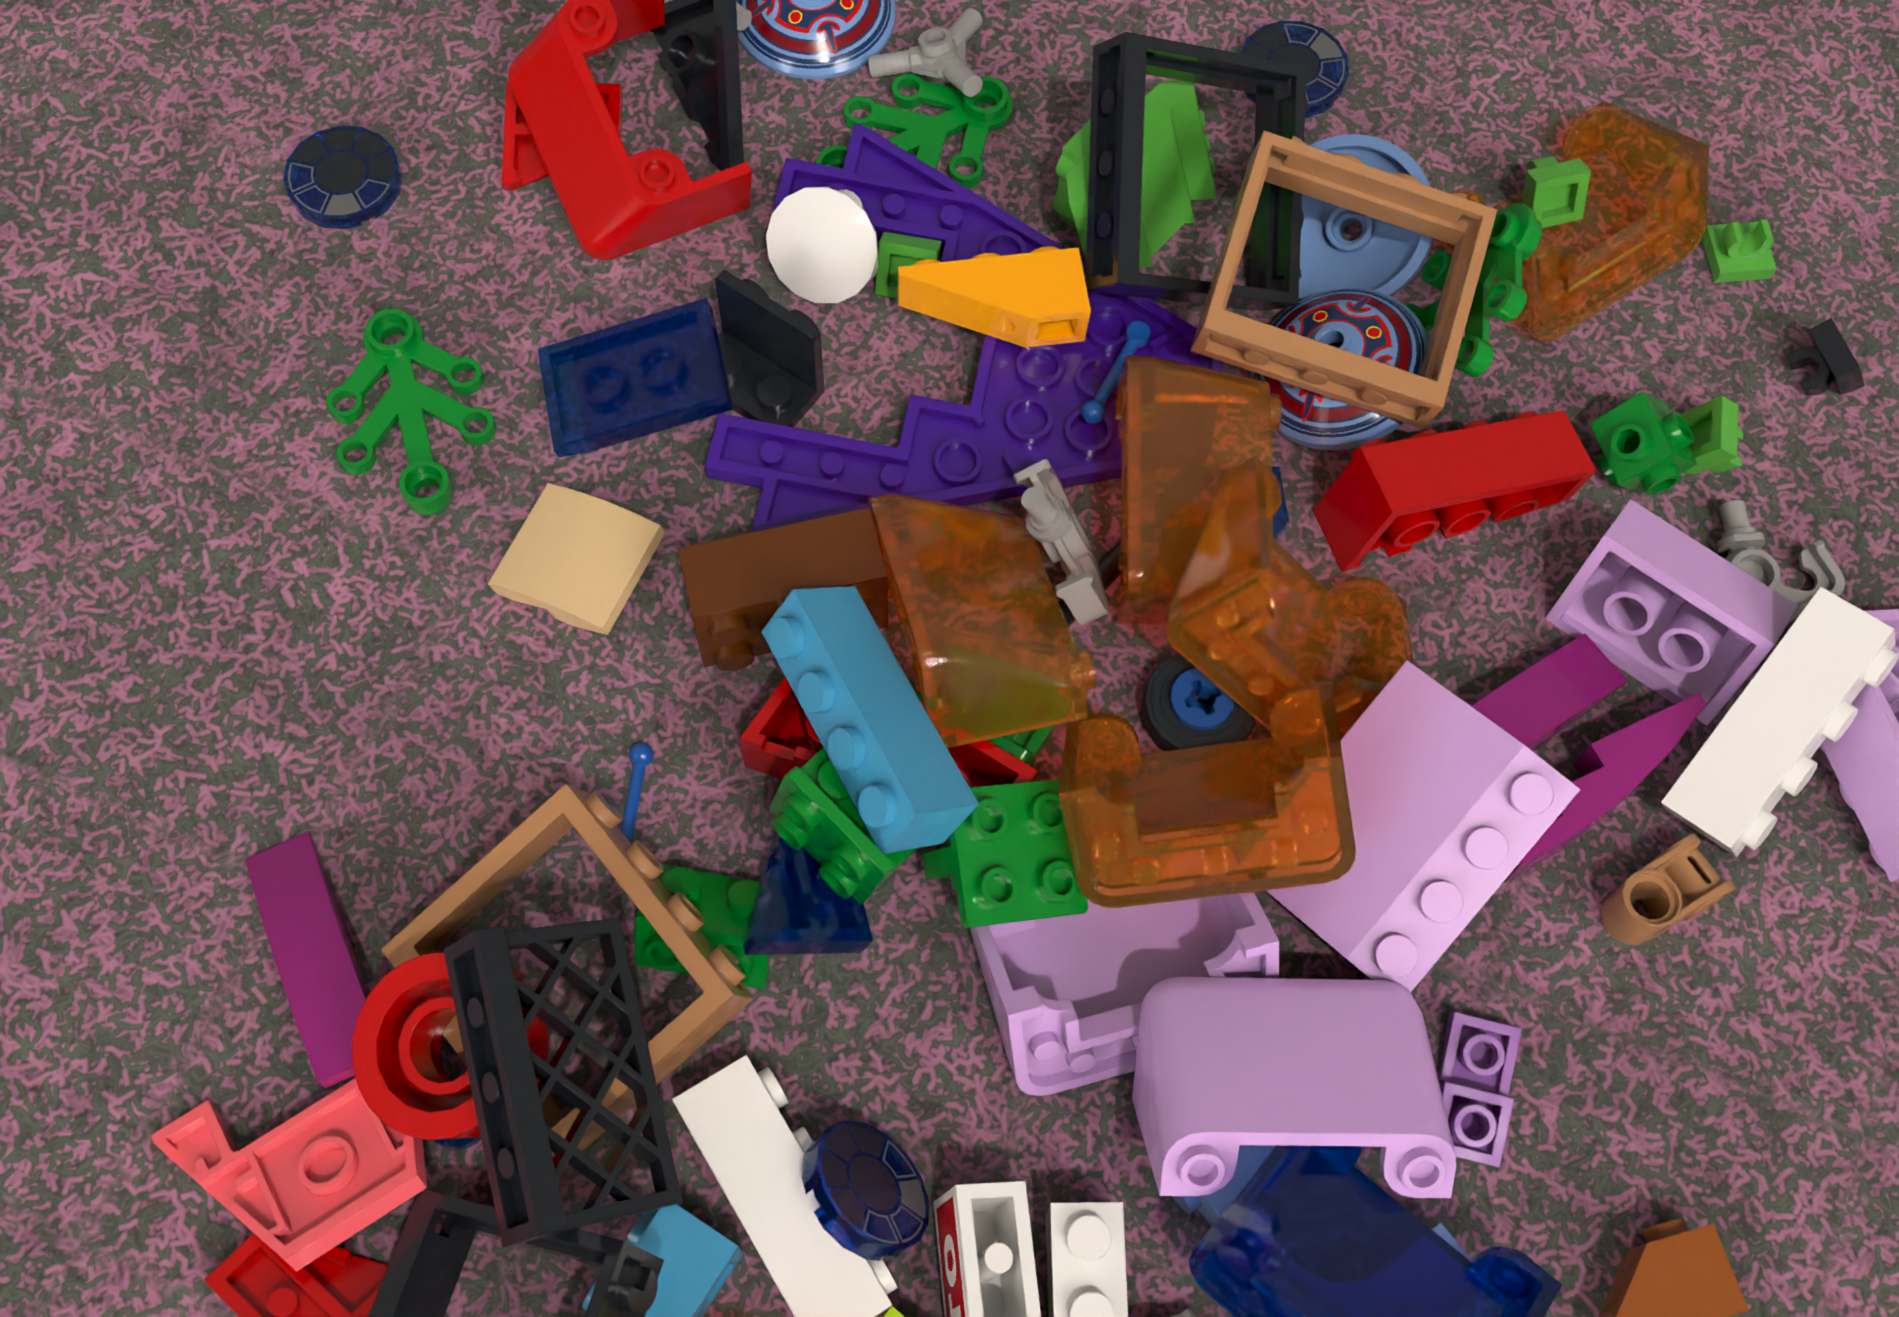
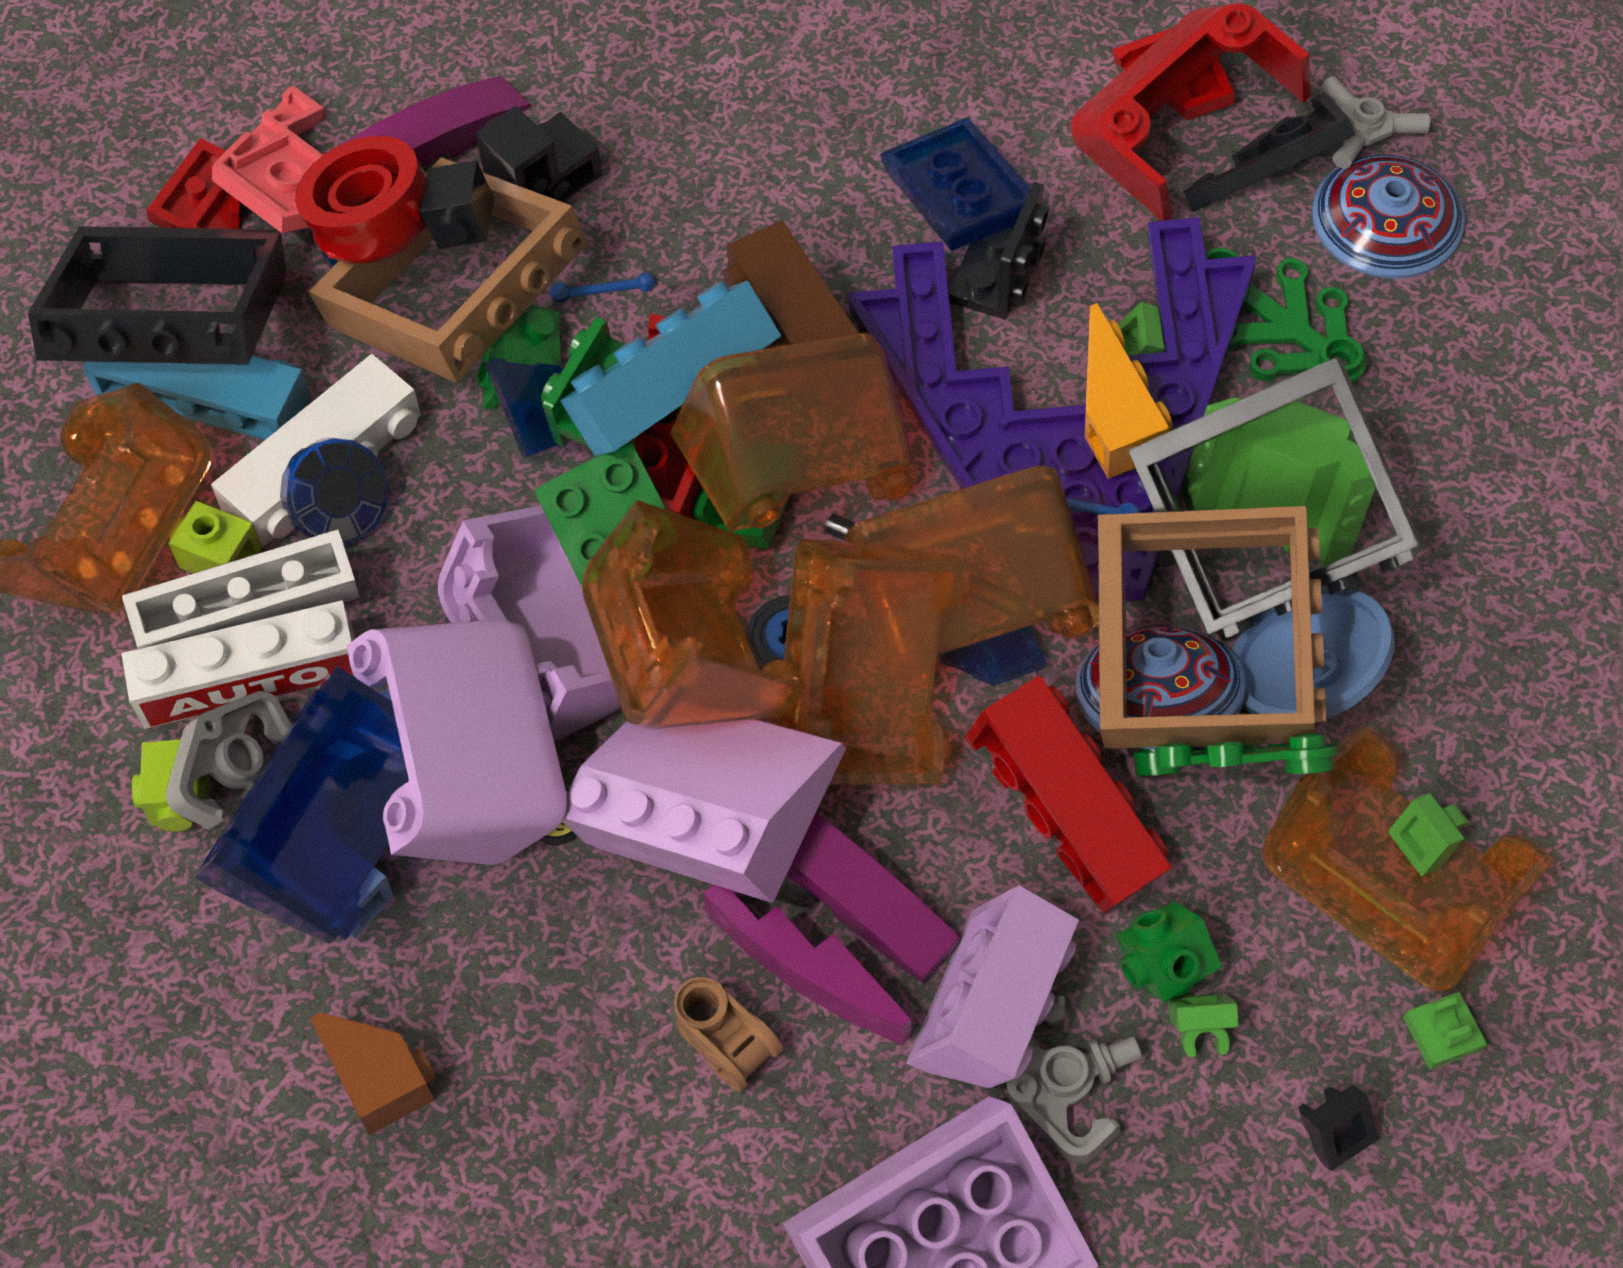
camera: 80 degrees right, 5 degrees down
(408, 402) = (887, 52): green plant -> none
(425, 828) = (543, 157): none -> black brick
(488, 907) = (457, 204): none -> black brick
(511, 1101) = (329, 216): black fence -> none
(577, 558) = (794, 188): tan slope -> none
(822, 244) = (1126, 267): white dish -> none
(938, 56) = (1372, 310): light grey piece -> none
(1064, 540) = (898, 486): light grey piece -> none
(1307, 46) = (1494, 598): tile -> none
(1476, 1085) = (516, 912): medium lavender slope -> none
(1781, 722) = (891, 1076): white brick -> none

